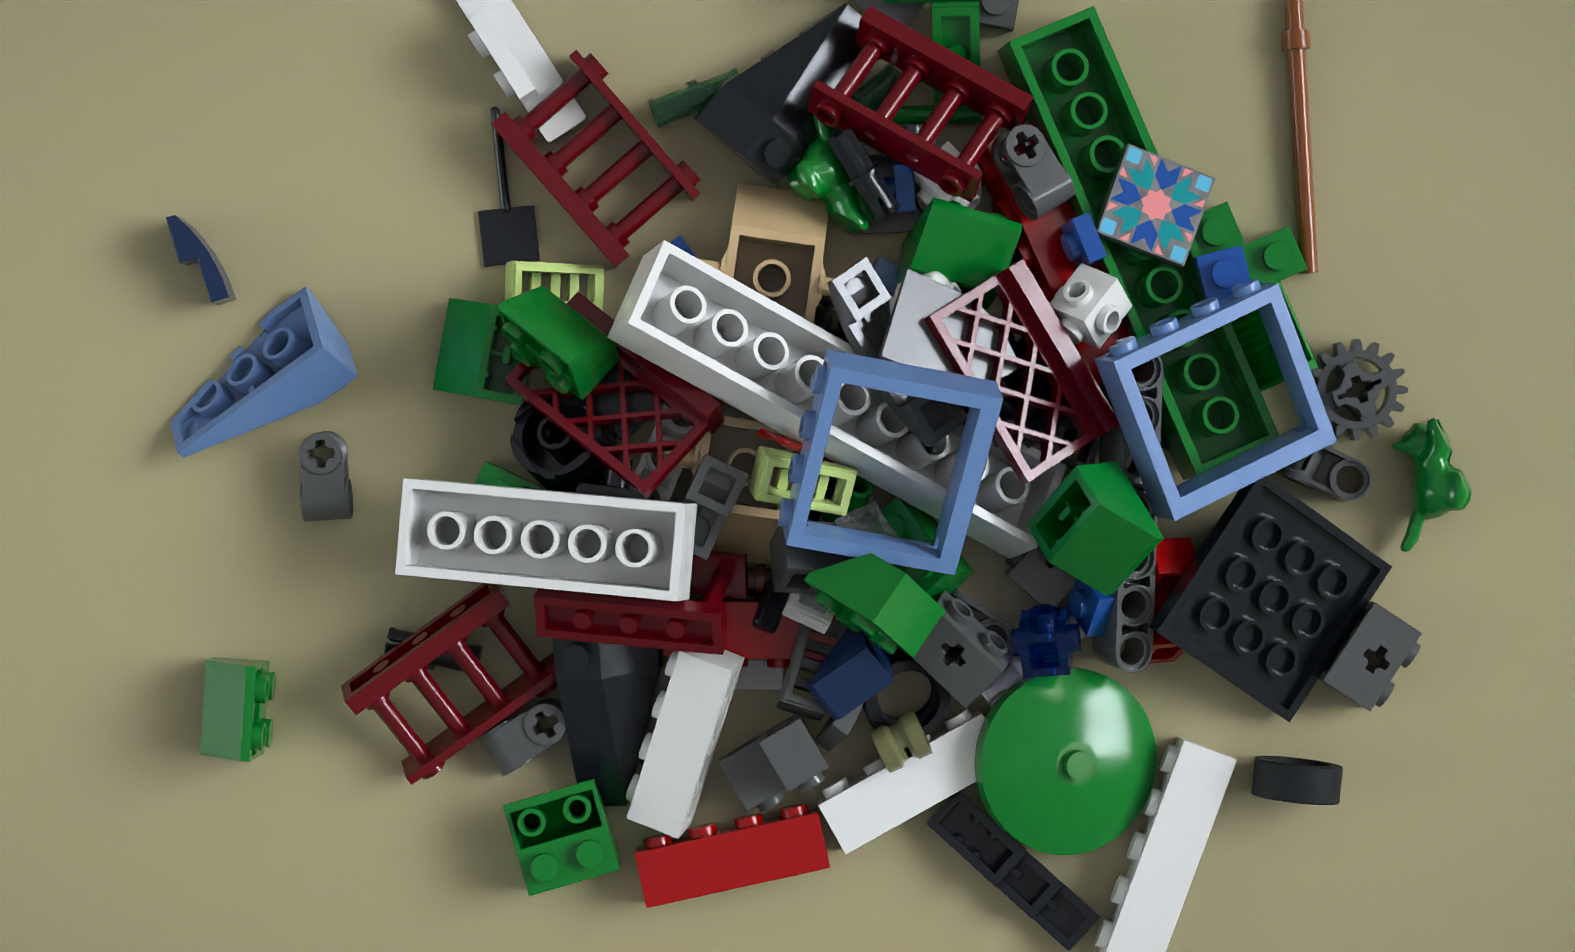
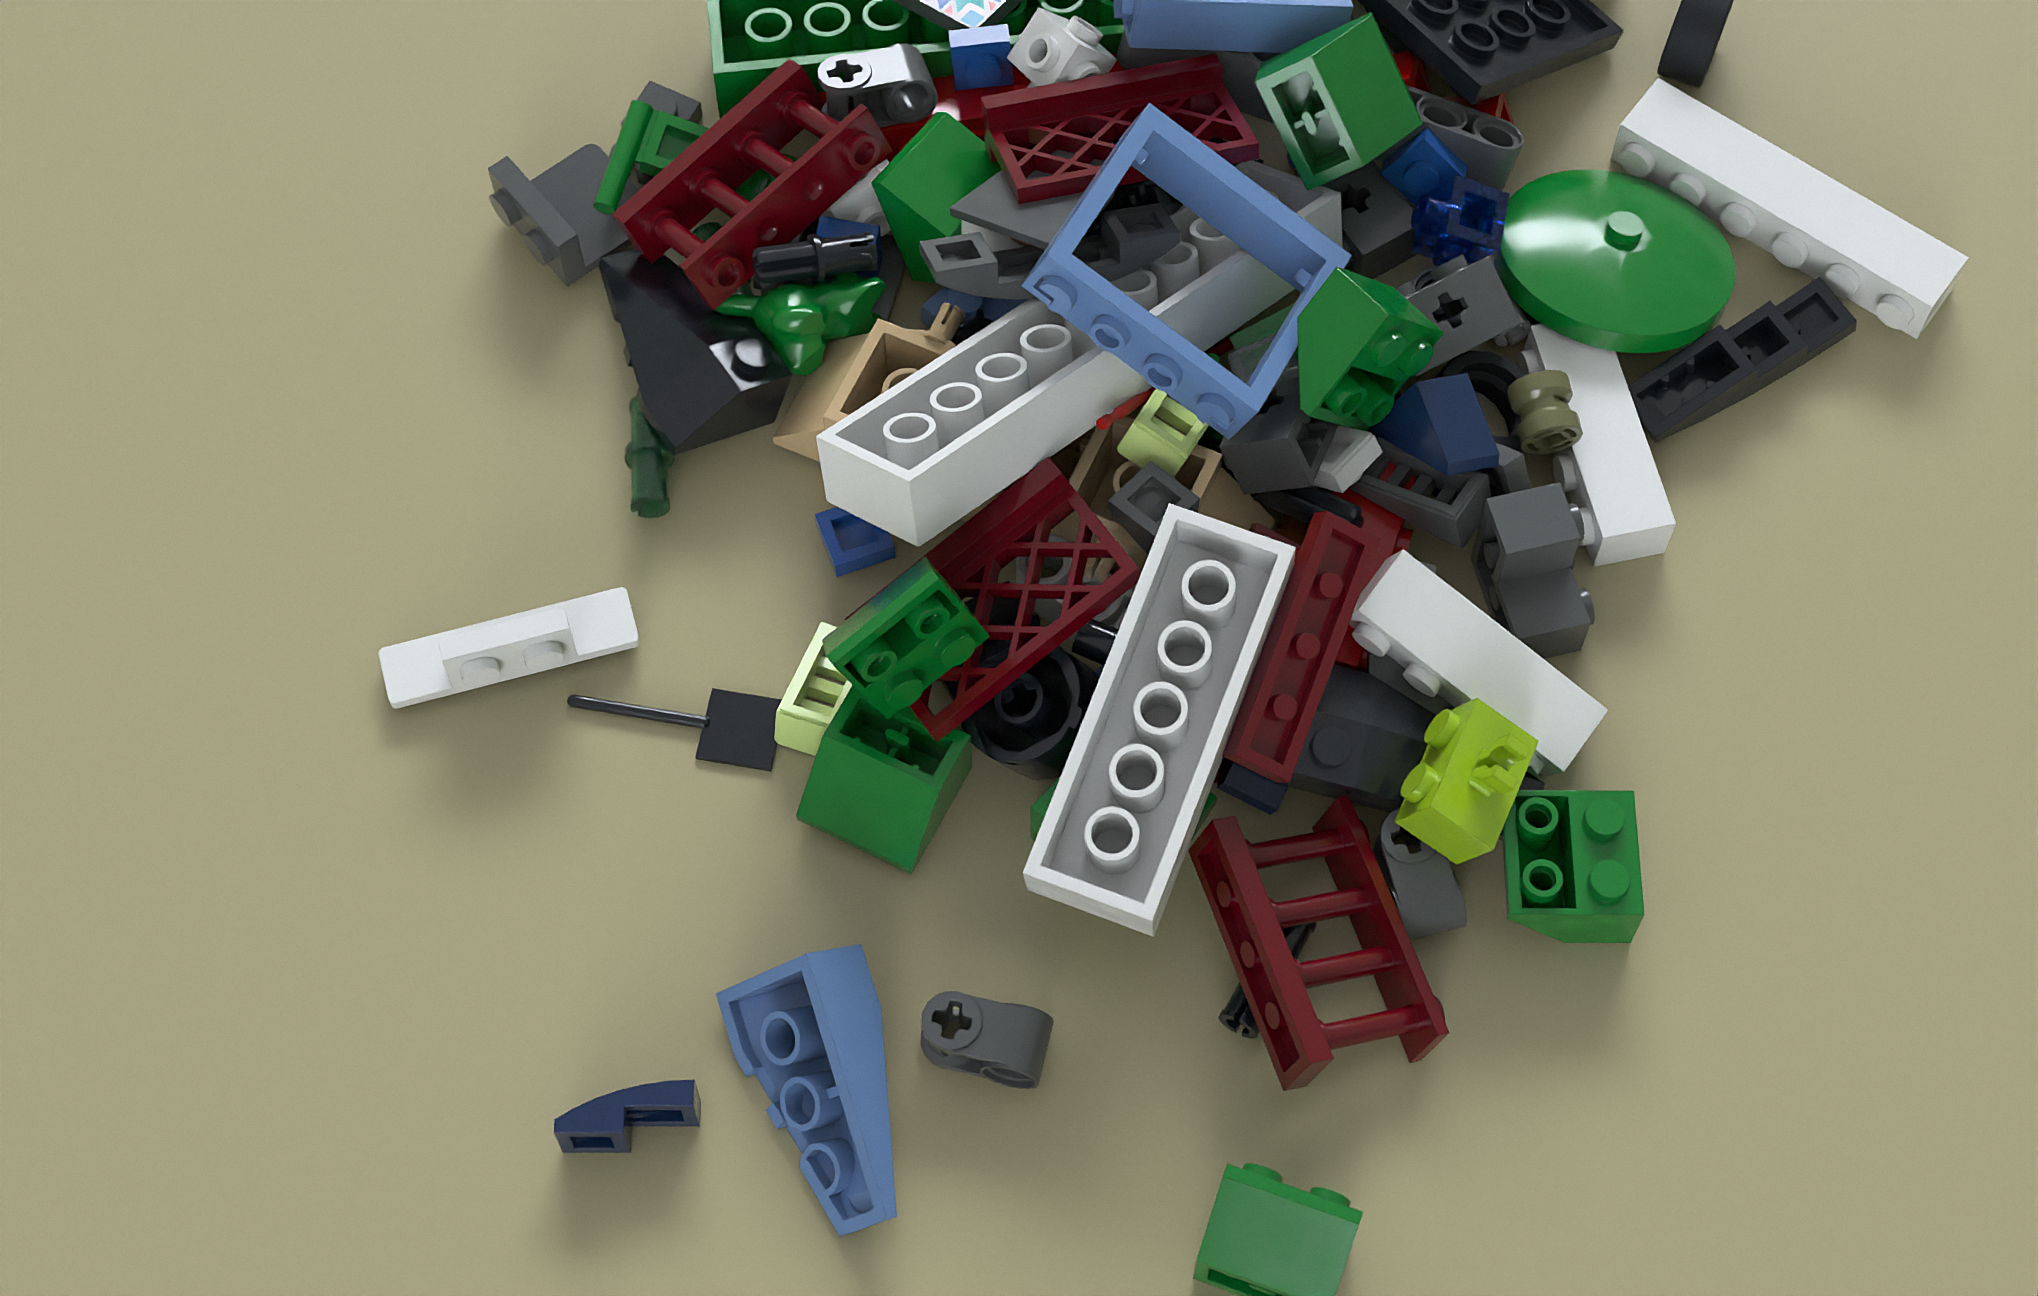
camera: 70 degrees left, 25 degrees down
(552, 166) = (674, 641): dark red fence -> none
(584, 755) = (1465, 780): none -> lime brick
(731, 856) = (1645, 670): red brick -> none

